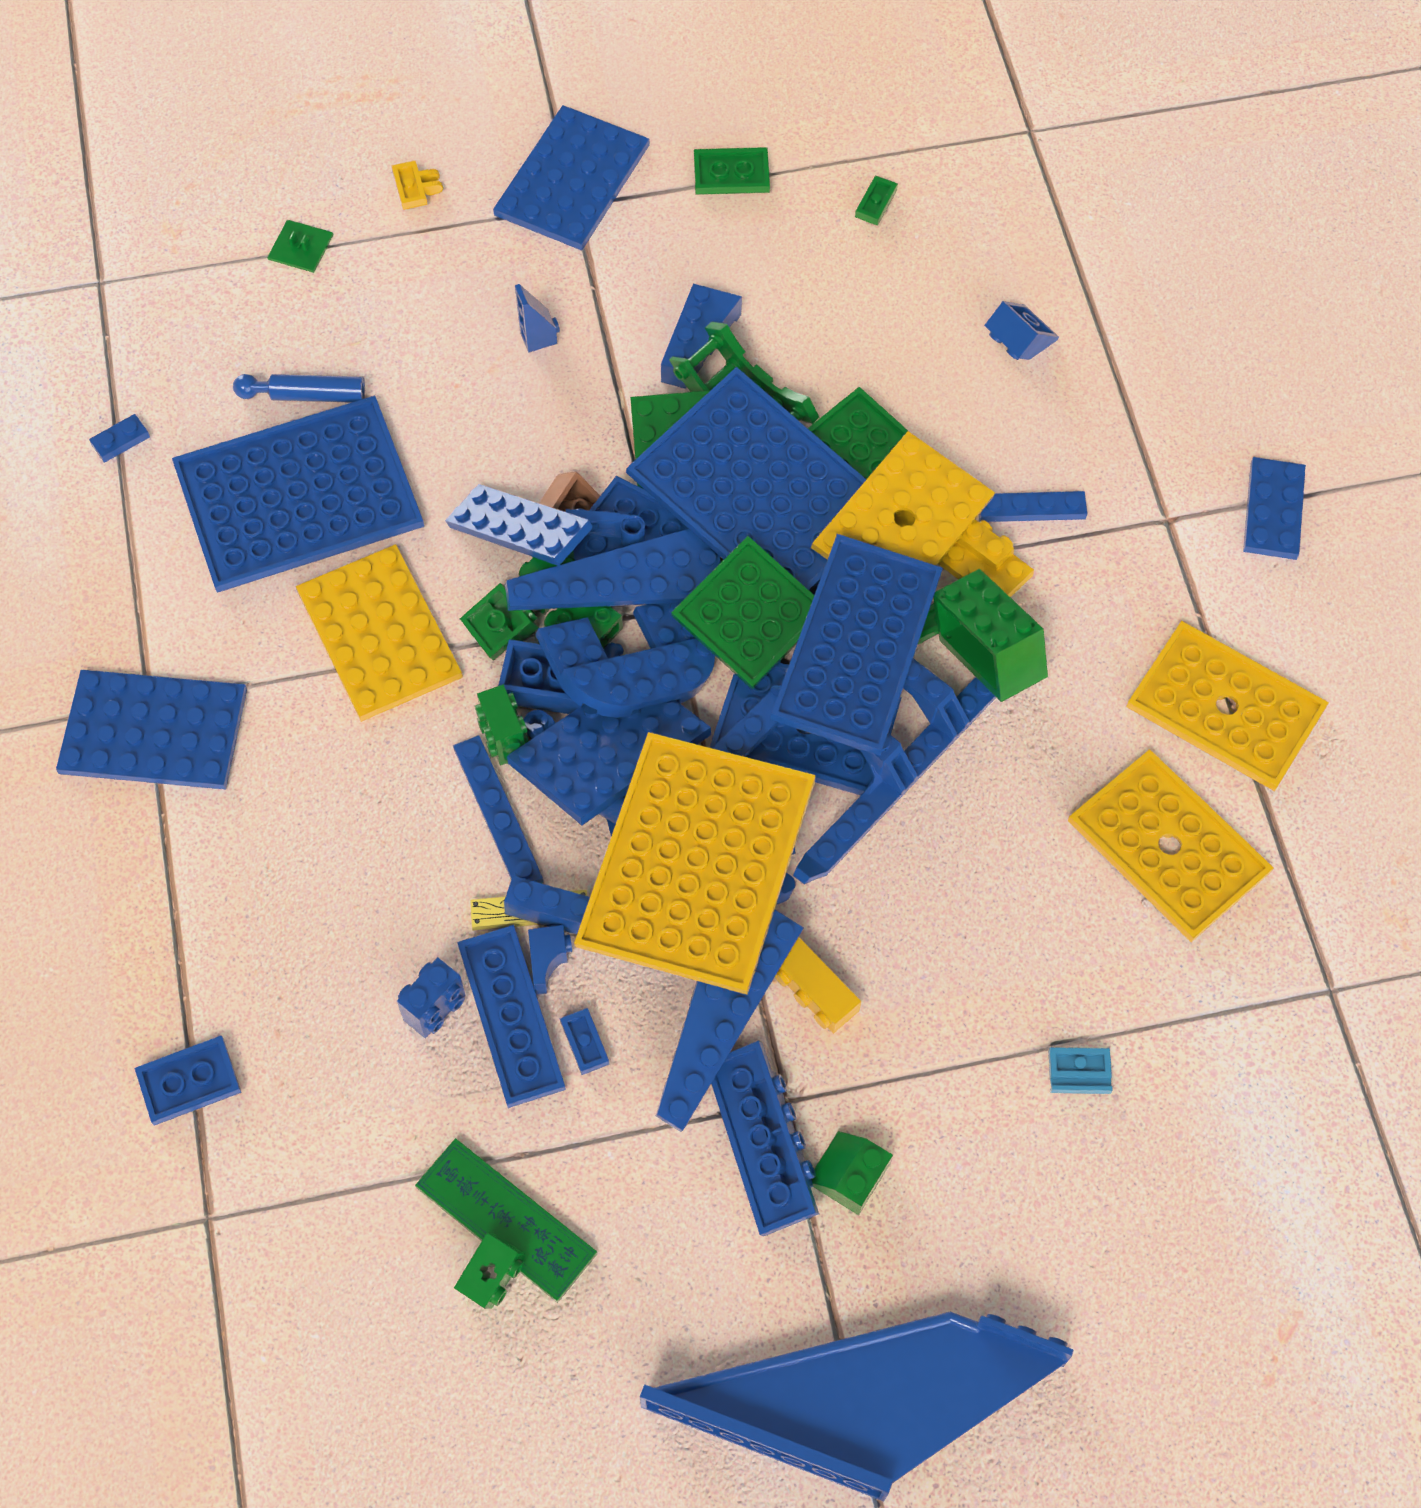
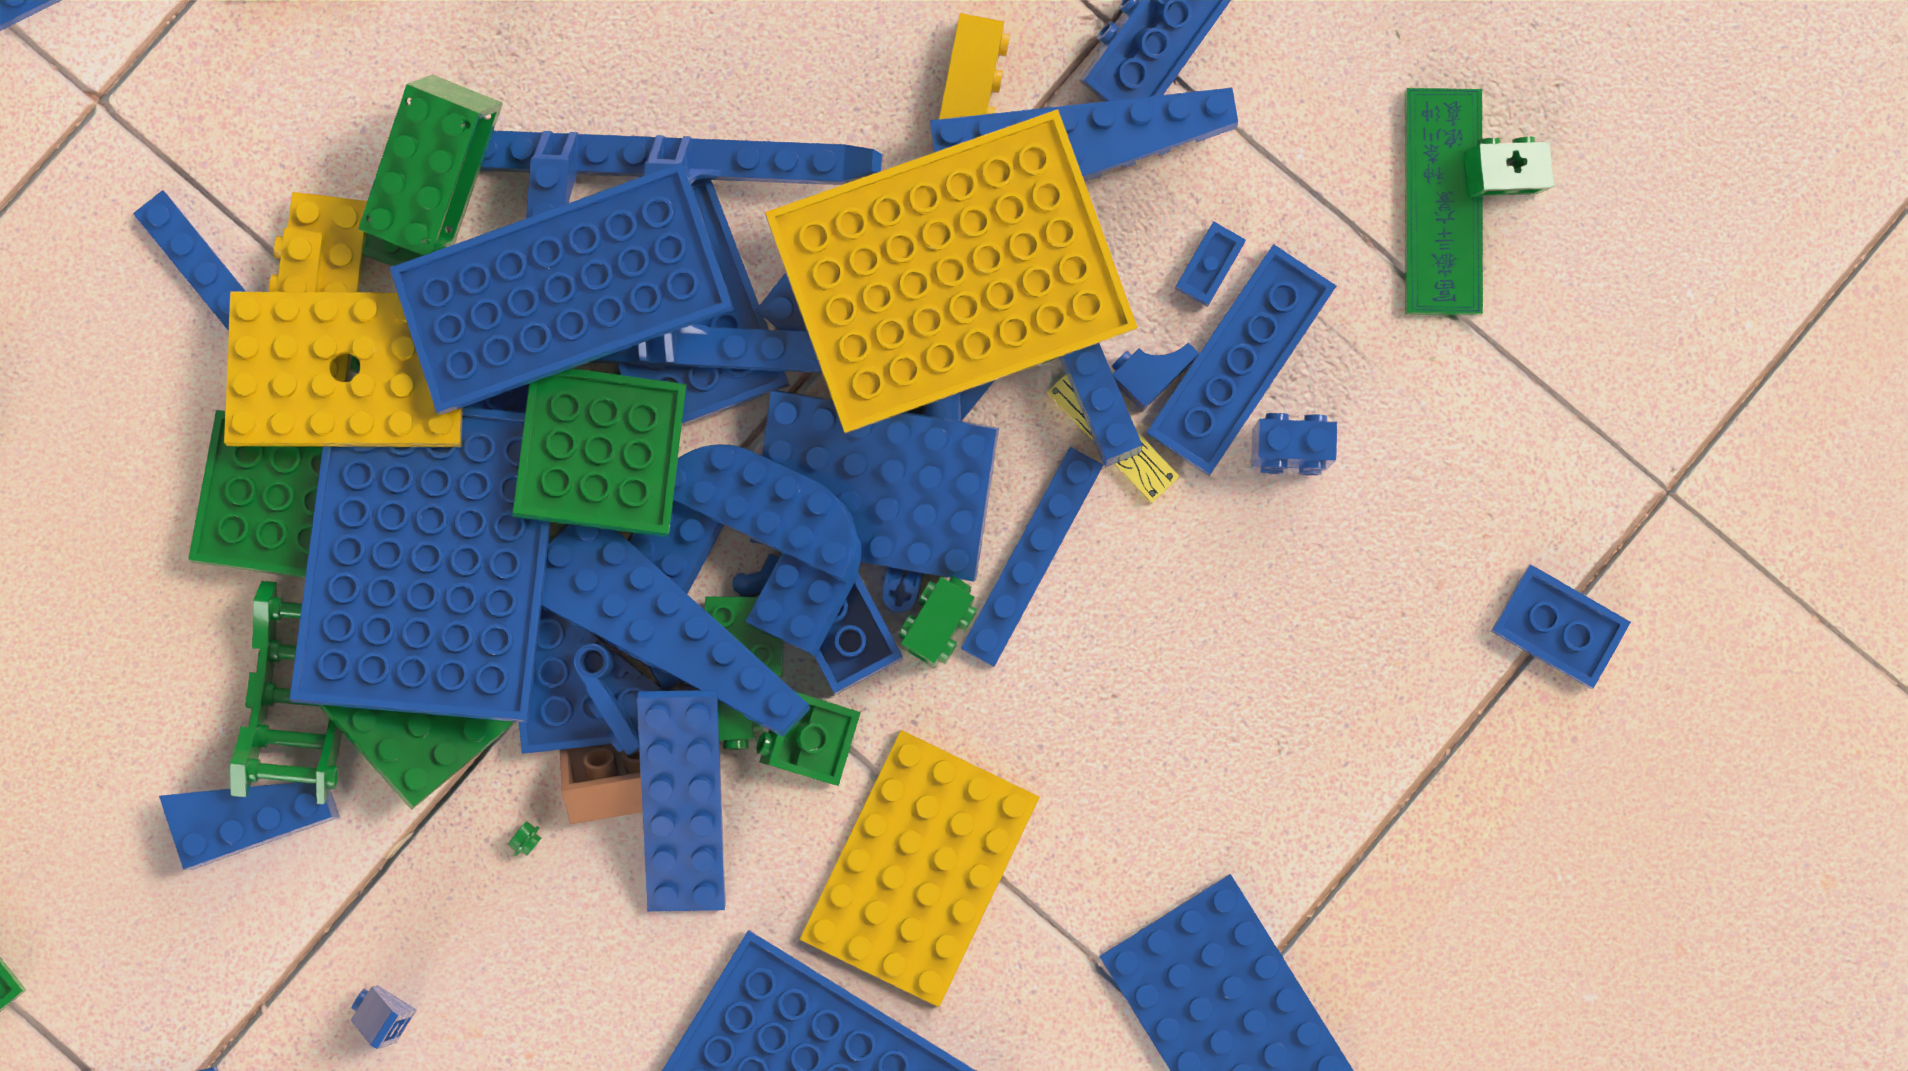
camera: 130 degrees left, 20 degrees up
(570, 453) = (524, 839): none -> green plate

